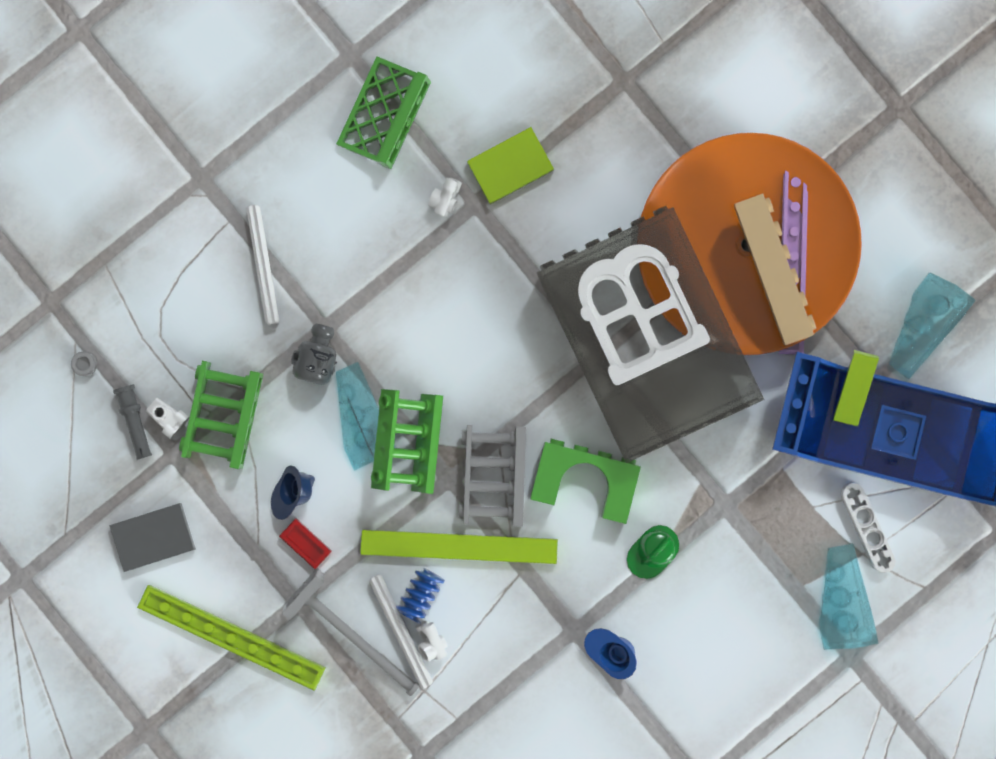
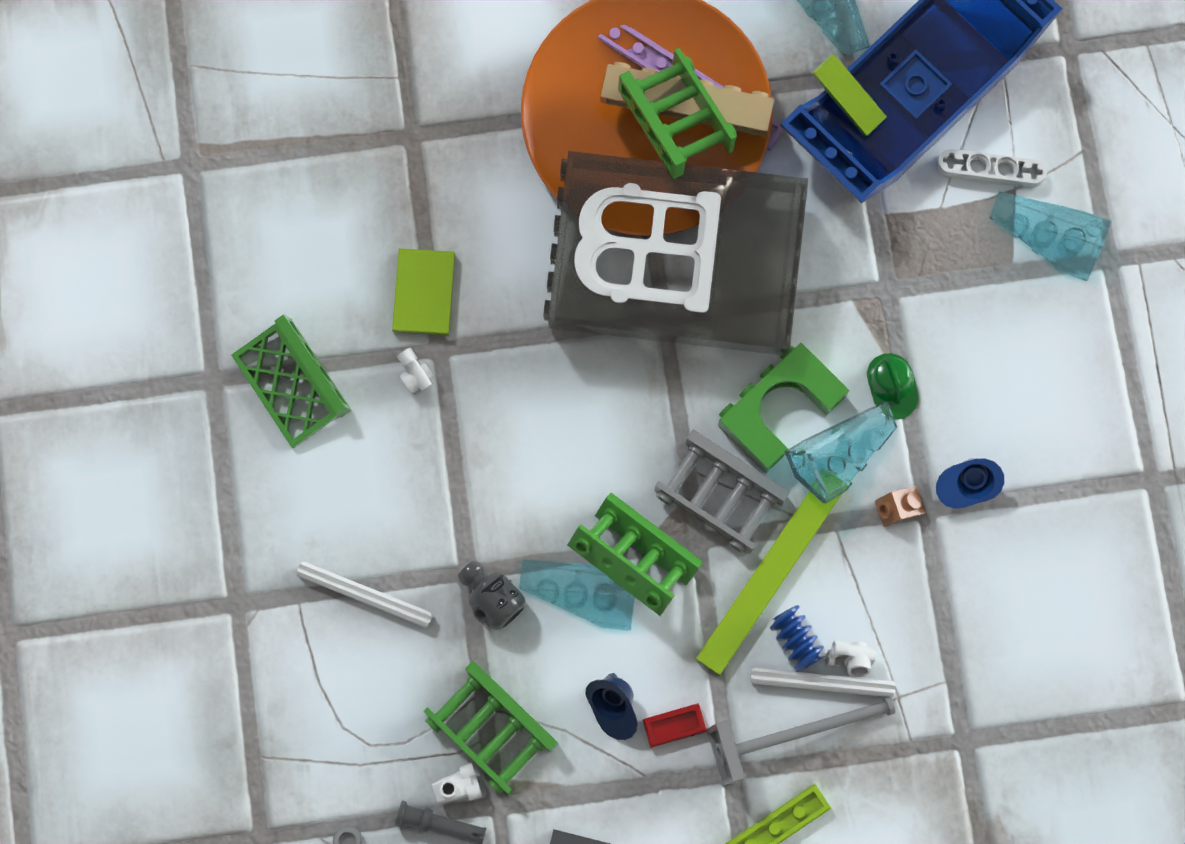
camera: 60 degrees left, 10 degrees down
(564, 611) = (900, 506): none -> nougat bracket
(569, 541) = (835, 455): none -> clear light blue wedge
(728, 269) = (662, 134): none -> bright green fence

